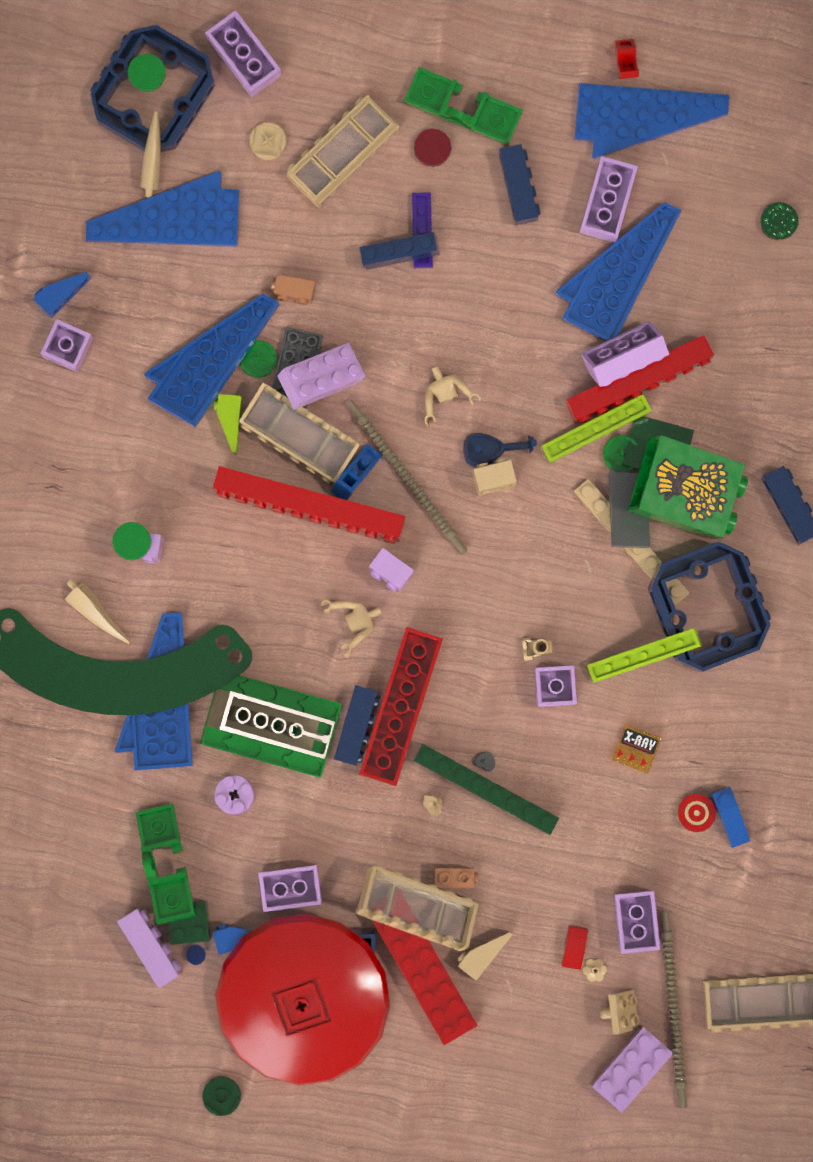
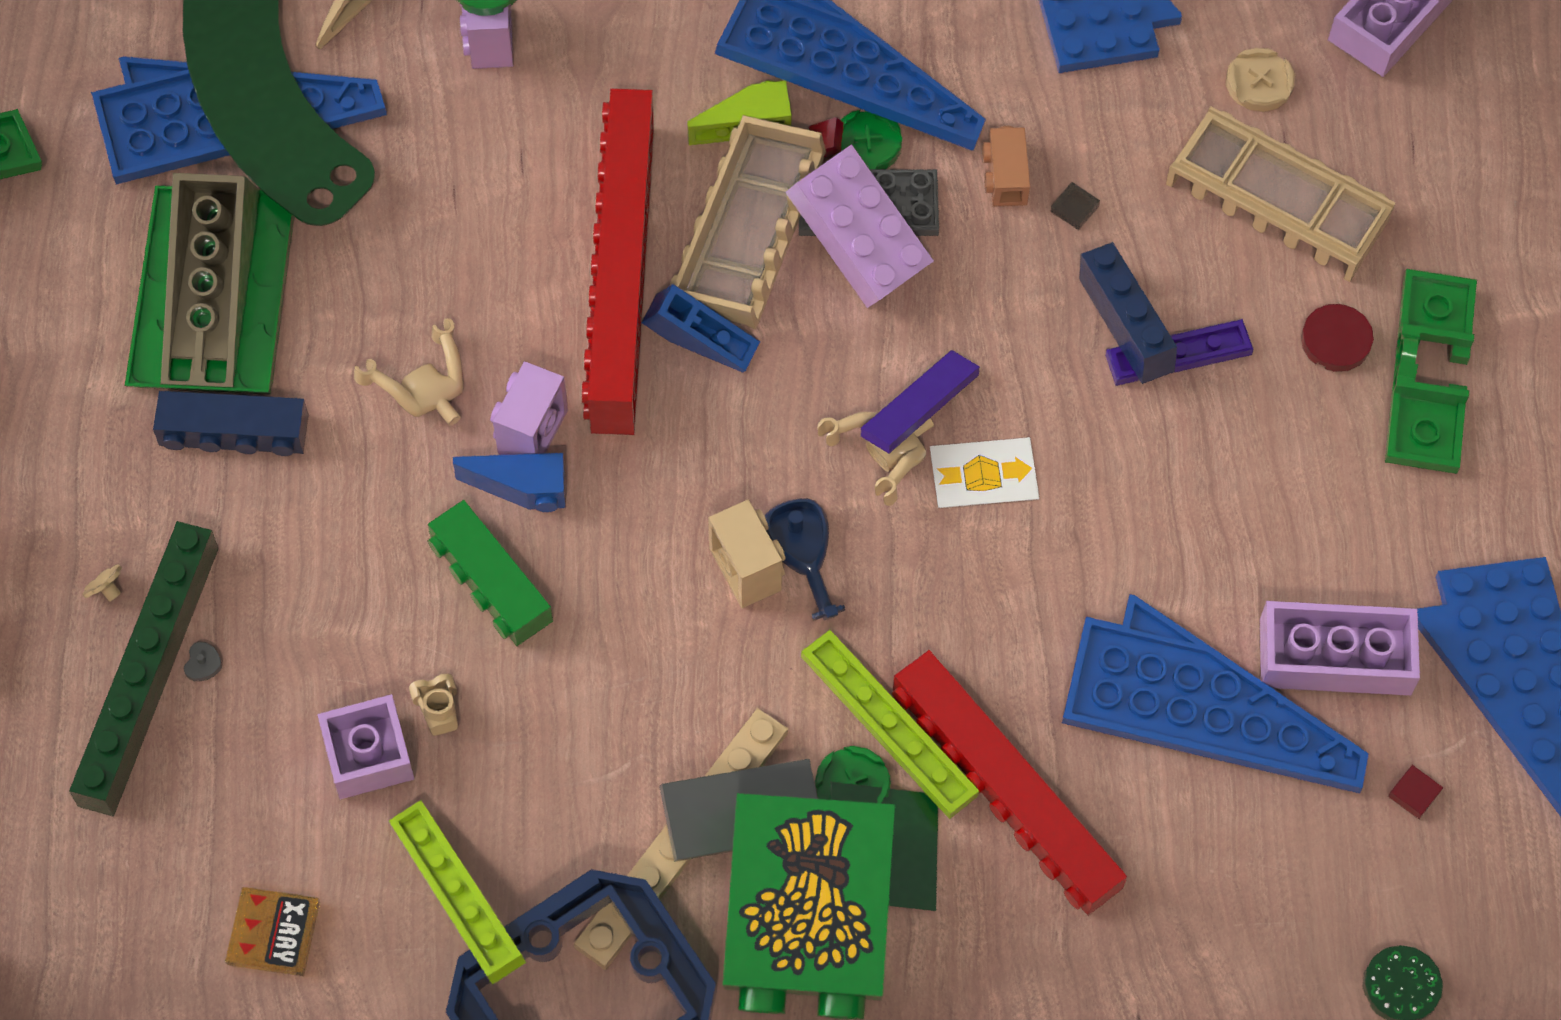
camera: 75 degrees right, 20 degrees down
(224, 798) = (70, 253): lavender brick -> none
(253, 380) = (831, 133): none -> dark red tile
(323, 260) = (1075, 206): none -> clear smoke tile
(362, 419) = (625, 510): dark tan hose -> none
(401, 706) = (277, 485): red brick -> none
(423, 580) = (523, 479): none -> blue slope
(425, 369) = (919, 401): none -> dark purple tile
(467, 347) = (984, 472): none -> white sticker
(472, 608) = (490, 573): none -> green brick
(518, 184) = (1316, 490): dark blue brick -> none
(625, 354) = (1045, 733): lavender brick -> none
(685, 185) = (1415, 791): none -> dark red tile

